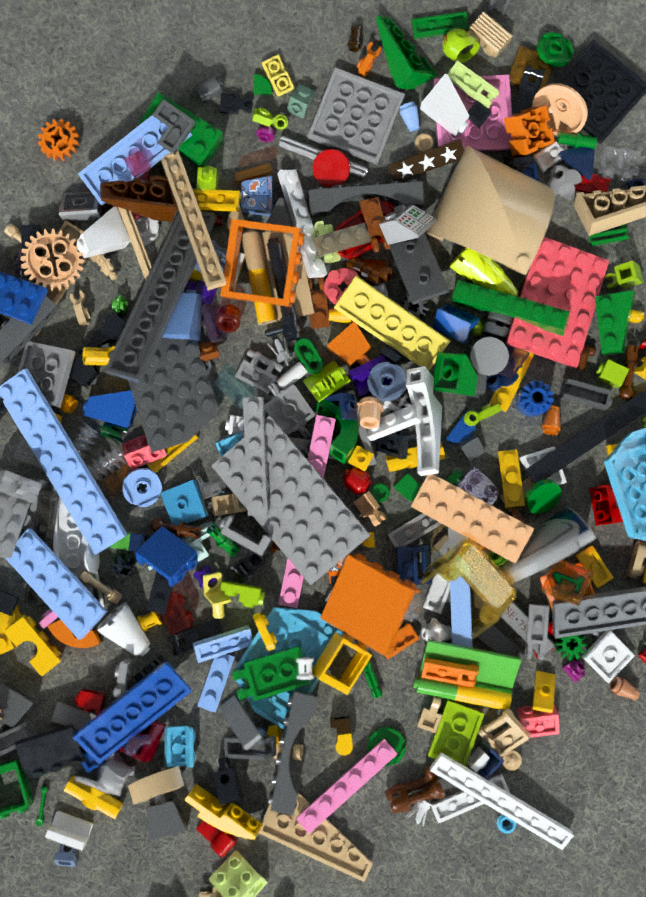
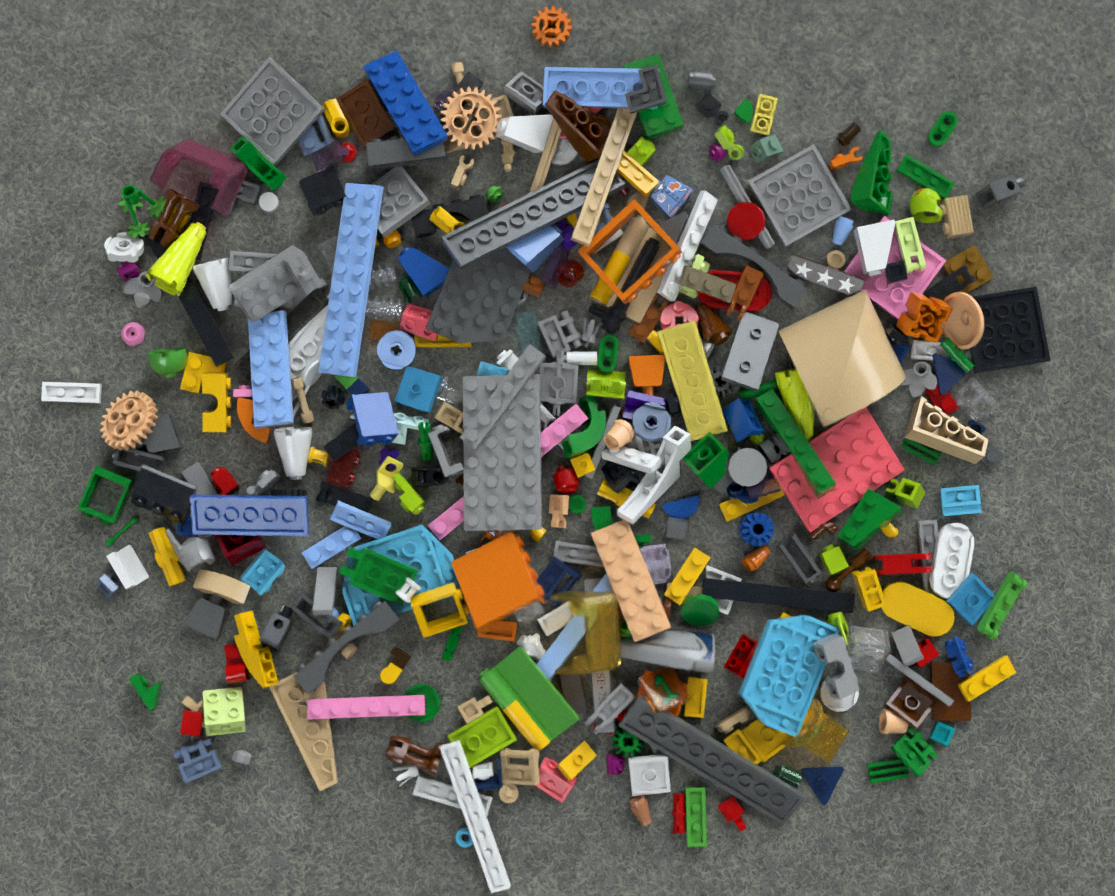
camera: 30 degrees right, 0 degrees up
(135, 742) = (232, 540): clear purple arm -> none
(137, 163) = (596, 97): clear pink tile -> none
(182, 529) = (400, 407): reddish brown pin -> none
(254, 173) = (681, 176): clear orange tile -> none
(268, 638) = (399, 545): yellow plate -> none
(347, 405) = (605, 415): dark blue bracket -> none
(405, 223) = (767, 312): slope -> none
(450, 672) = (516, 685): orange plate -> none
(451, 283) = (763, 388): none -> green pin
(486, 412) = (710, 509): lime plate -> none
(554, 49) = (999, 269): green tile -> none

